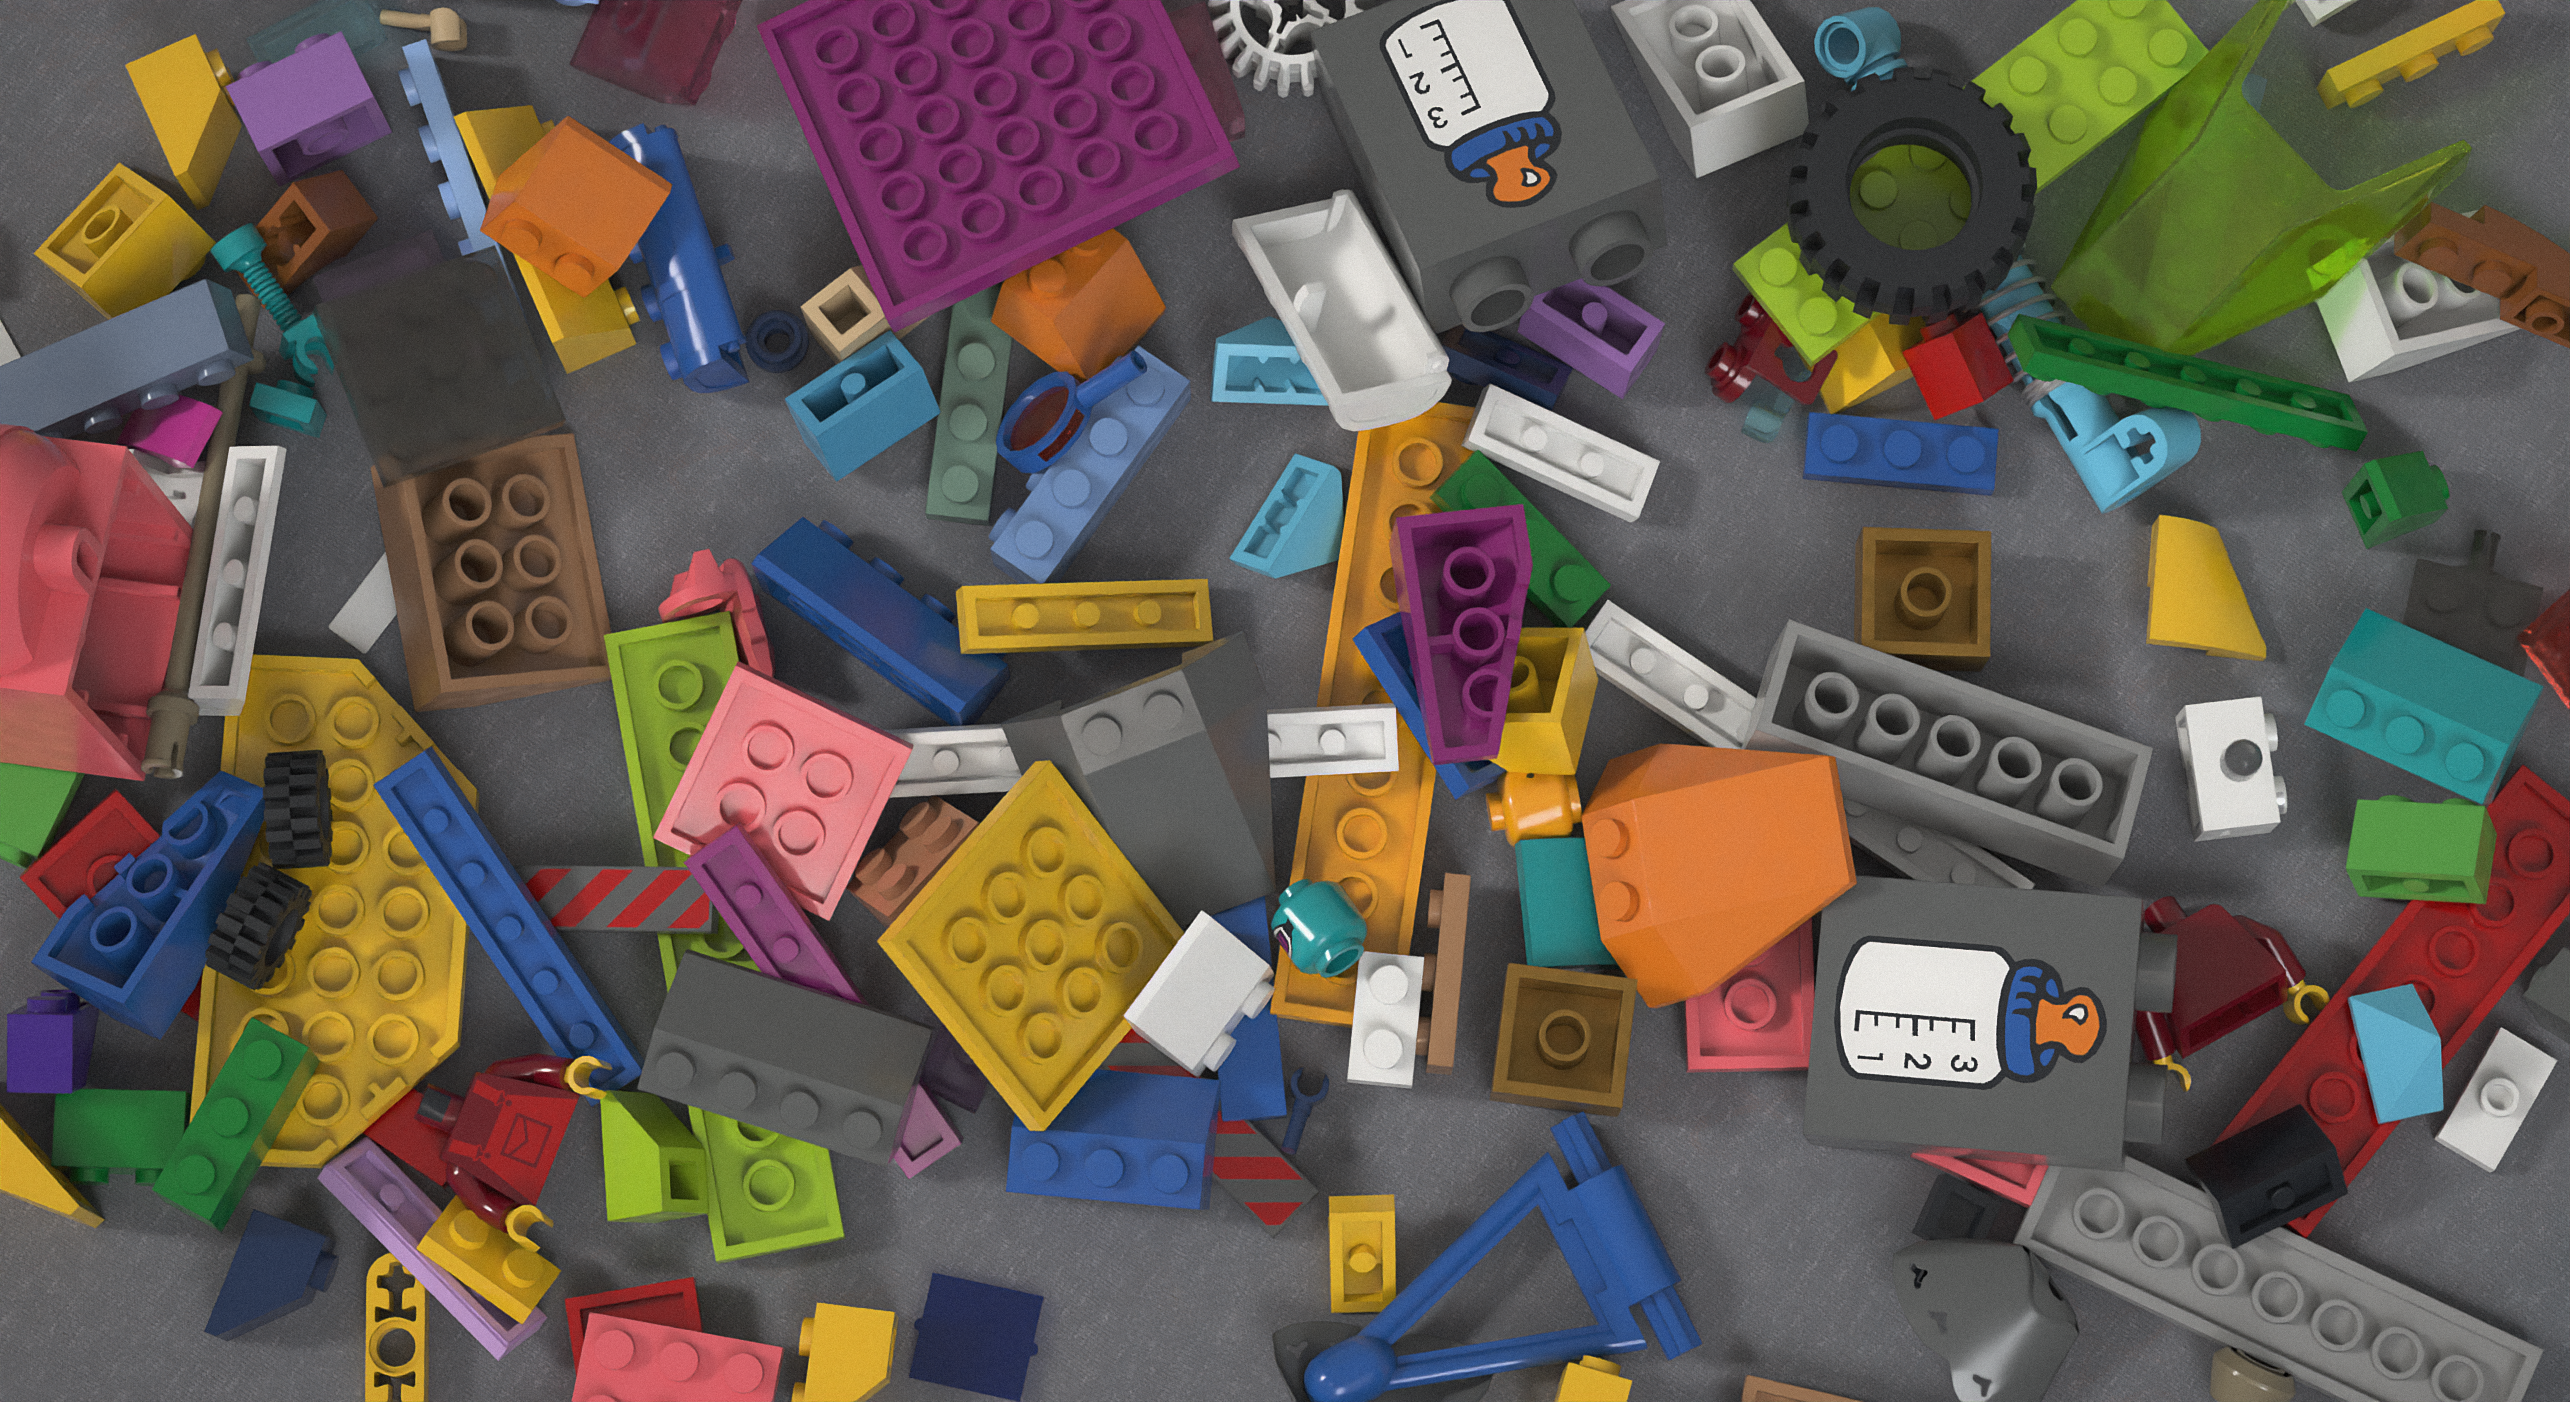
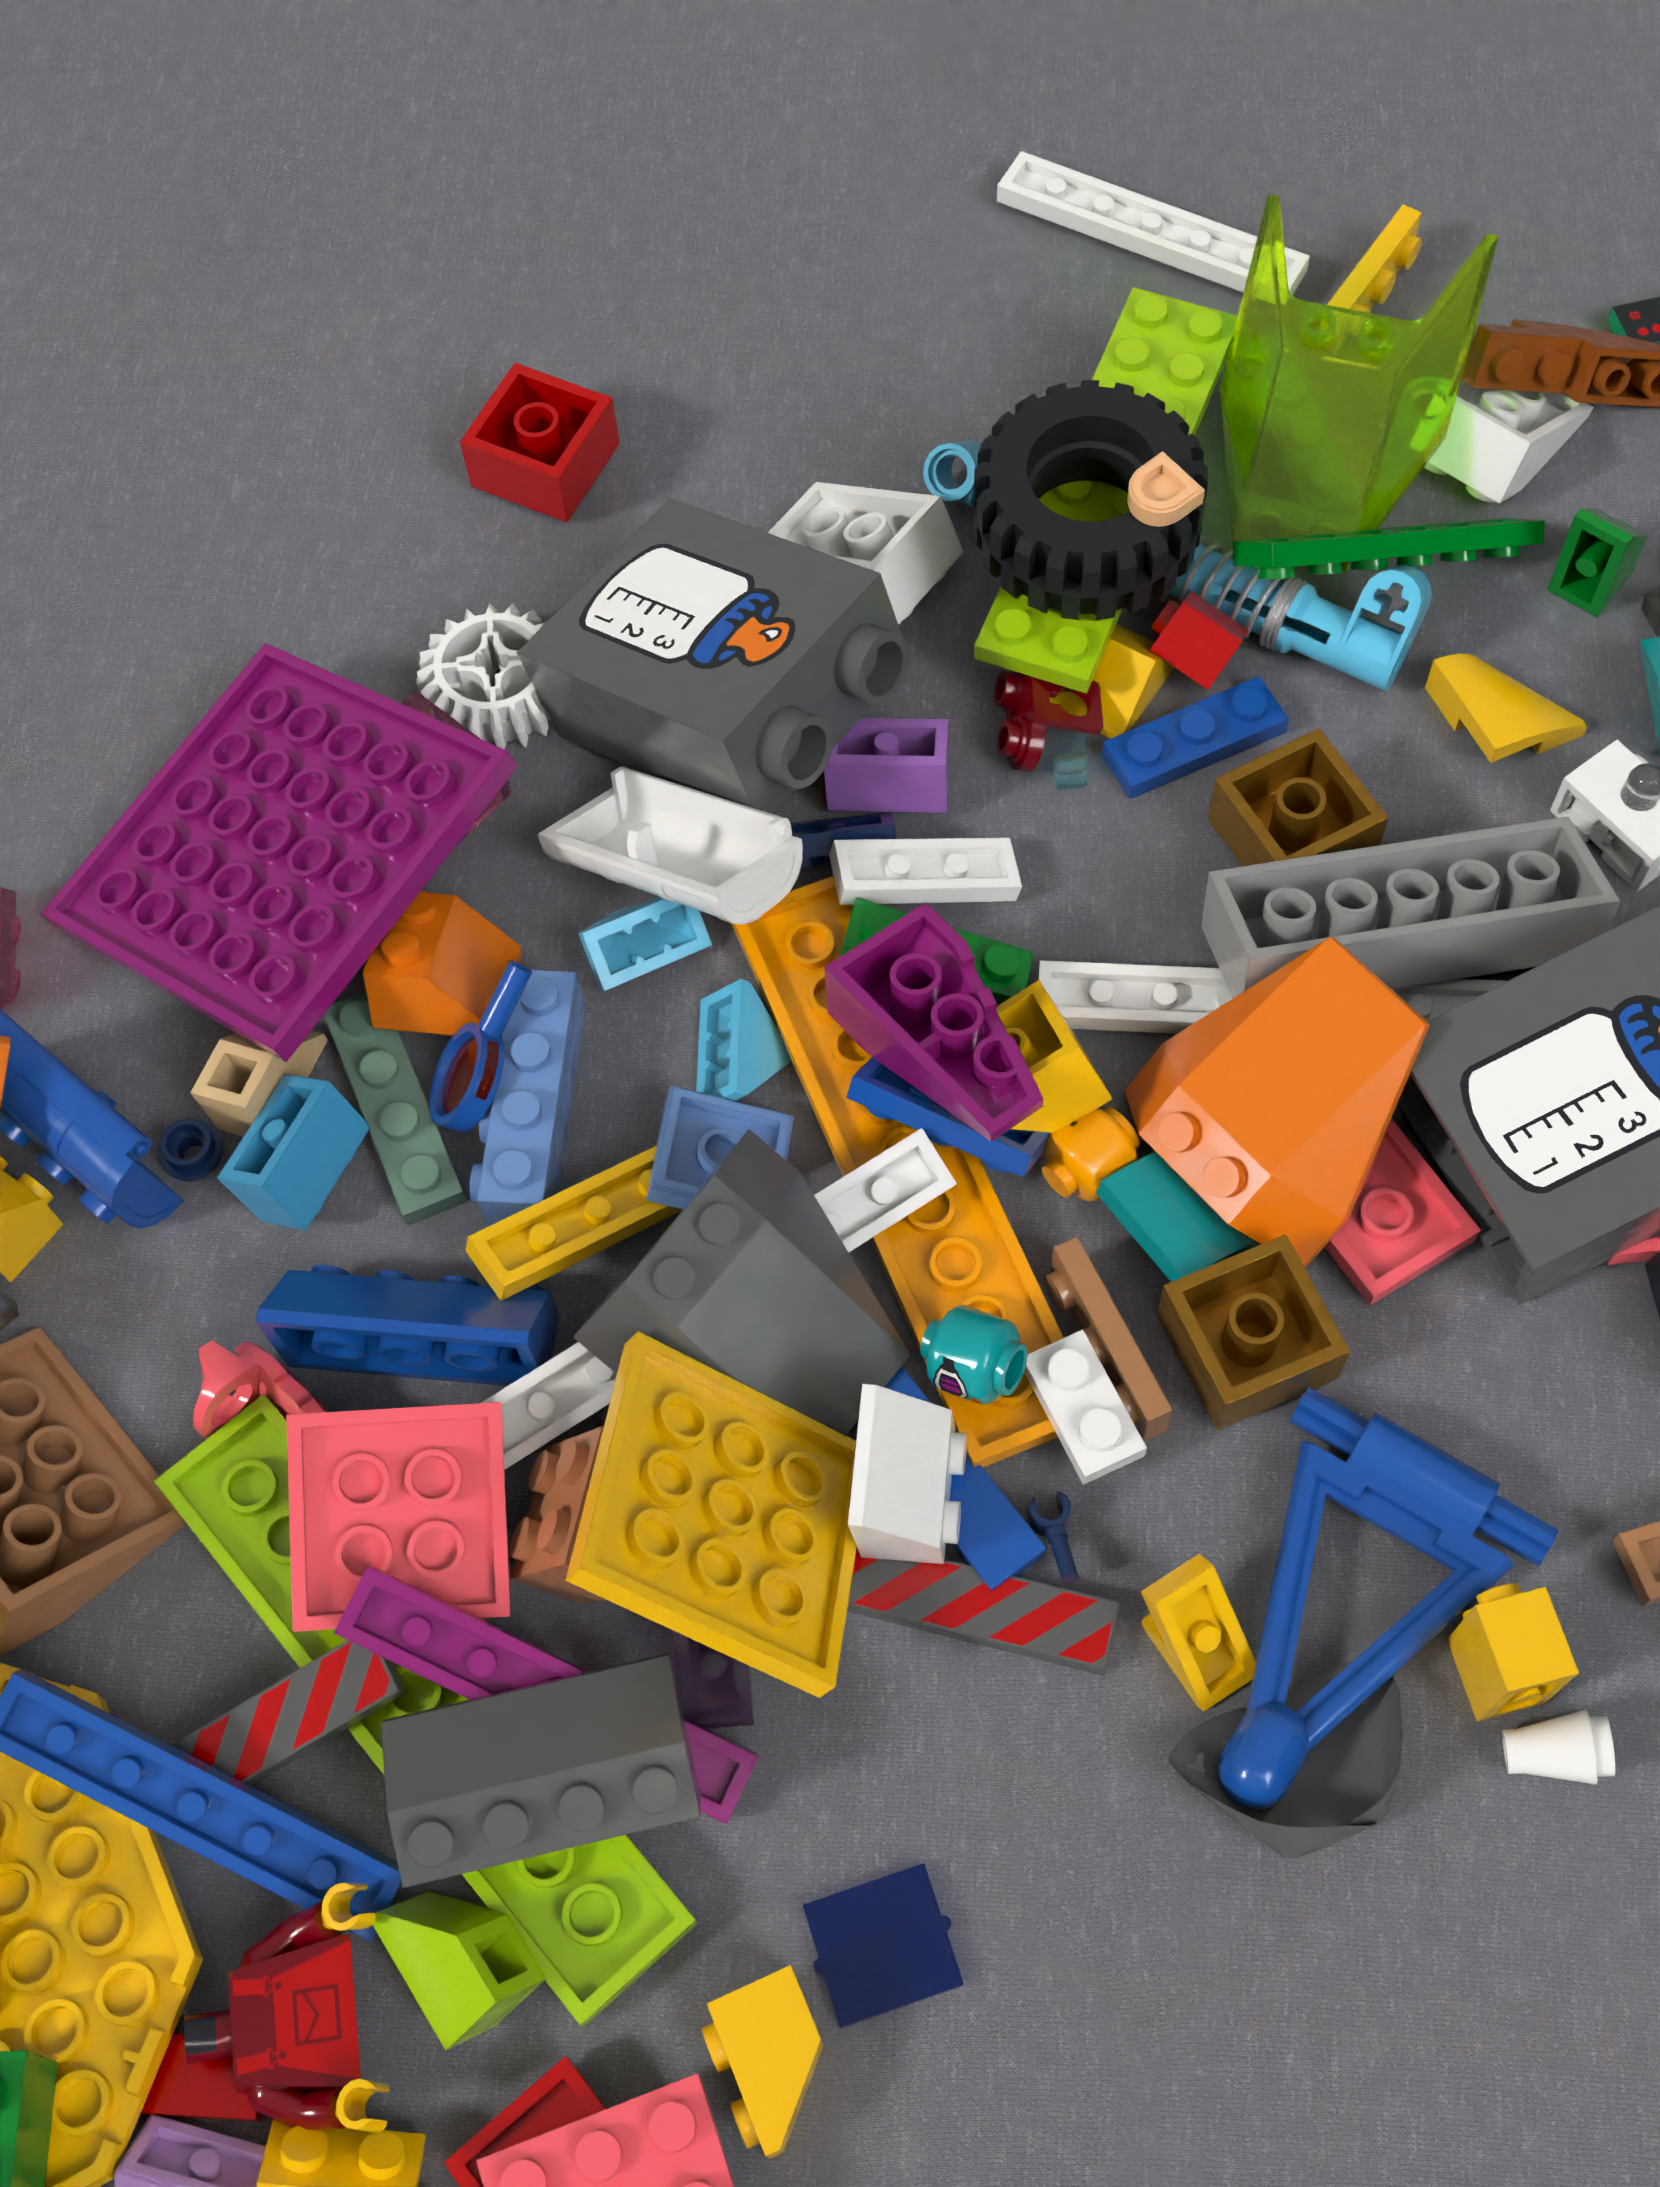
camera: 25 degrees left, 15 degrees down
(1124, 1143) = (913, 1664): blue slope -> none
(1216, 598) = (698, 1134): none -> medium blue tile
(1955, 252) = (1162, 492): none -> light nougat tile

